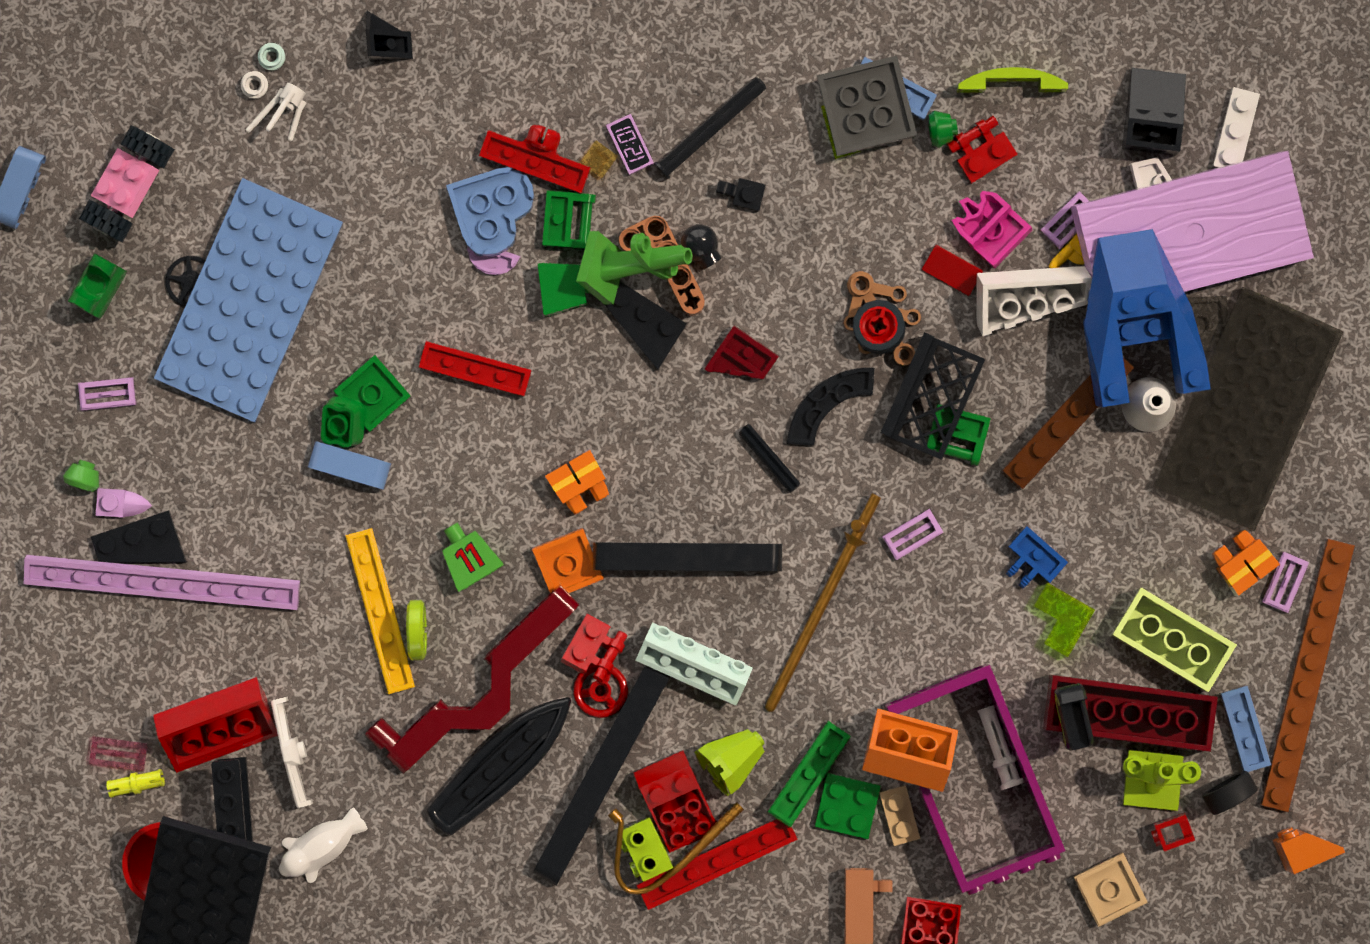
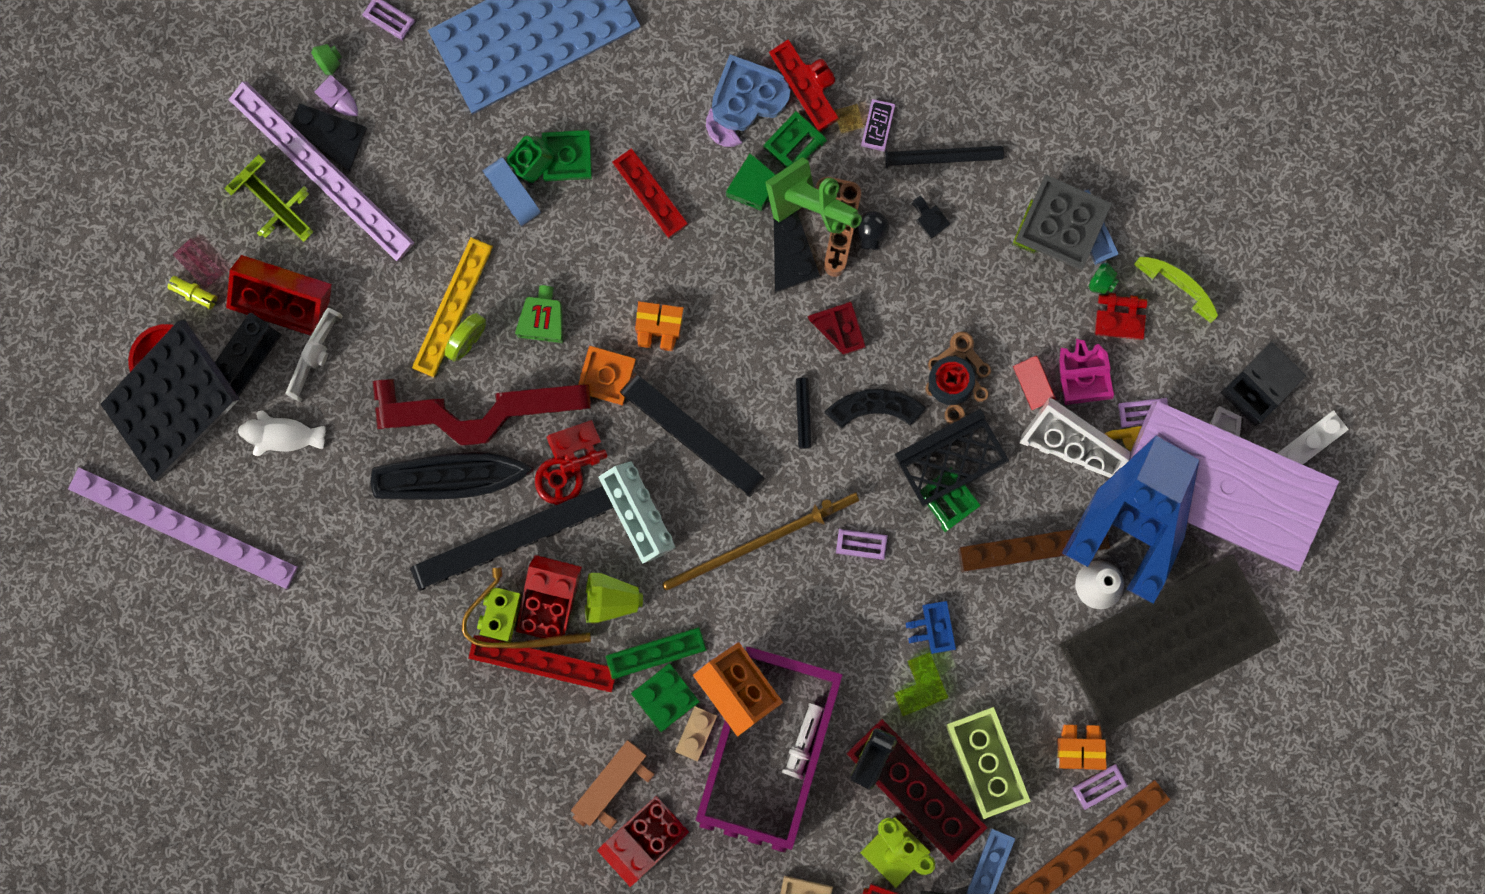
camera: 45 degrees right, 5 degrees down
(101, 642) = (273, 202): none -> lime piece

